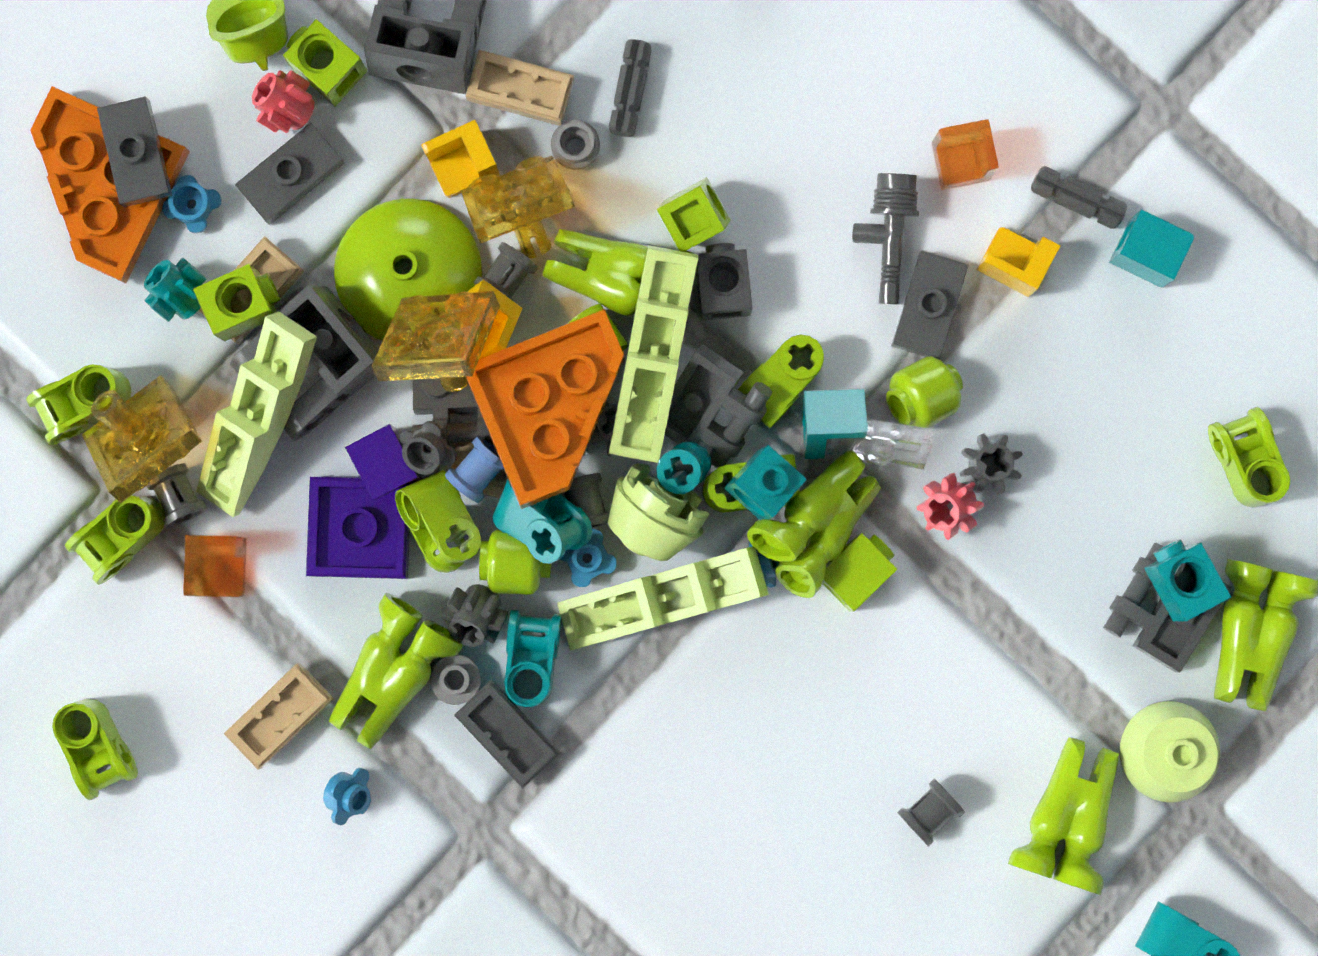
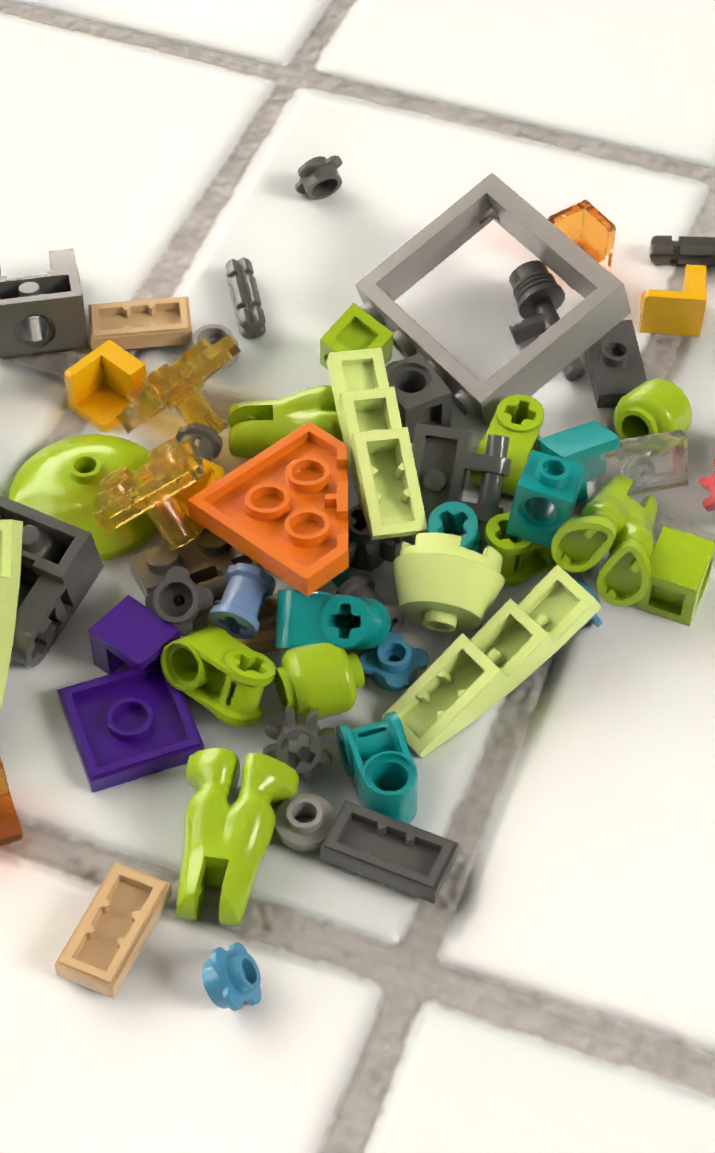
camera: 25 degrees left, 35 degrees down
(917, 190) = (491, 199): none -> light grey window

